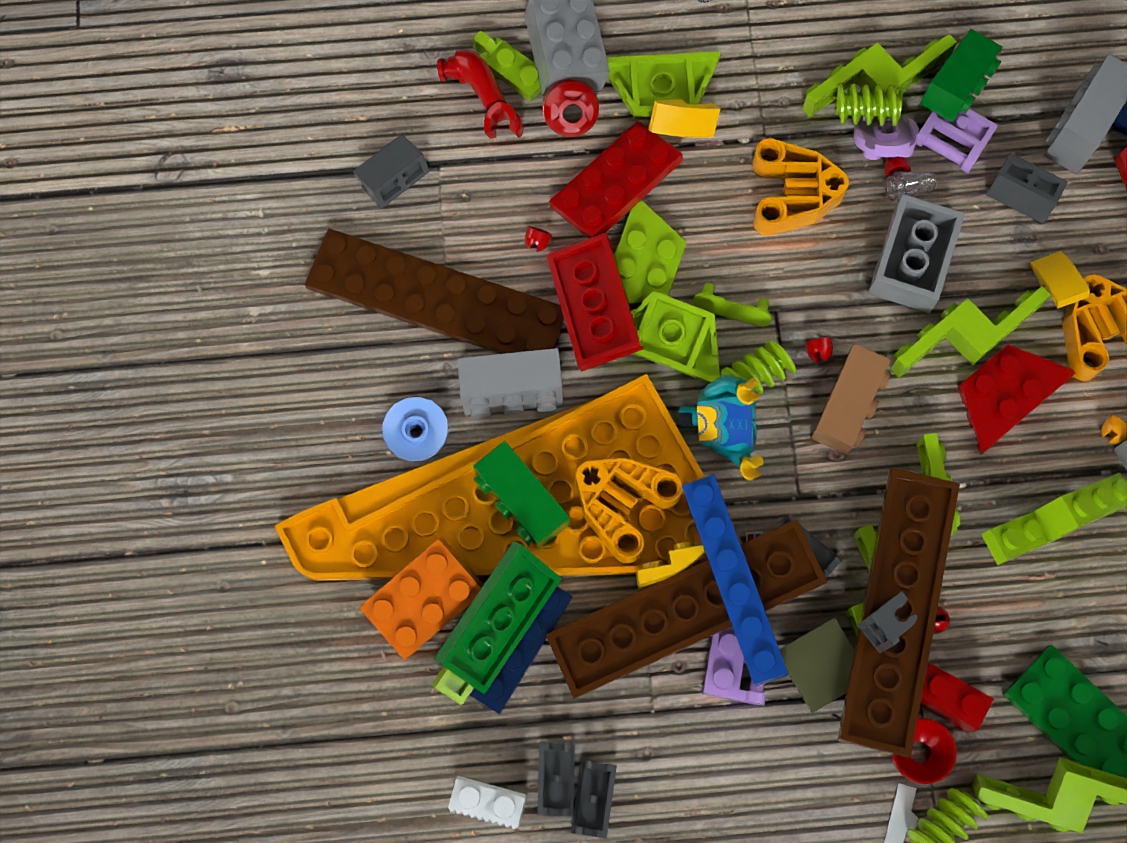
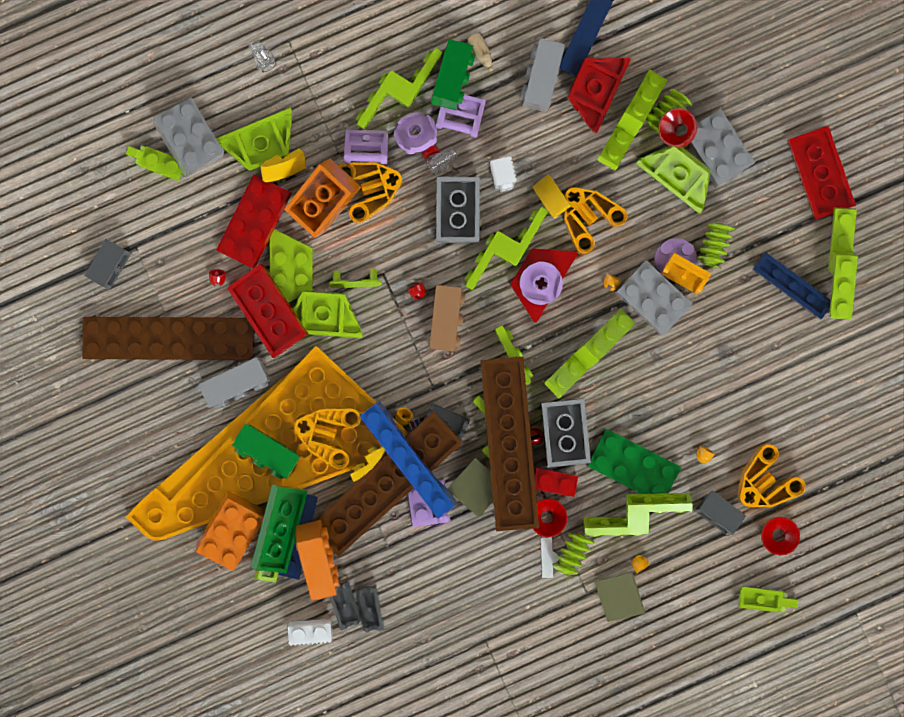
camera: 20 degrees left, 15 degrees up
(410, 414) = (177, 434): light blue dish -> none
(474, 71) = (135, 177): red piece -> none
(540, 687) = (317, 560): none -> orange brick
(566, 93) = (204, 177): red piece -> none
(727, 171) = (322, 198): none -> orange brick
(727, 421) = (375, 361): torso -> none
(743, 520) = (405, 412): none -> light orange hinge
(763, 365) = (382, 321): lime piece -> none
(809, 130) = (366, 141): none -> lavender plate
(868, 104) = (398, 120): lime piece -> none
(883, 627) = (500, 463): dark grey hinge -> none
(989, 626) = (565, 432): none -> light grey brick
(995, 400) = (551, 277): none -> lavender plate
(998, 222) = (503, 174): none -> white brick
(1009, 68) = (481, 50): none -> tan piece
(1027, 188) = (516, 138): dark grey hinge -> none

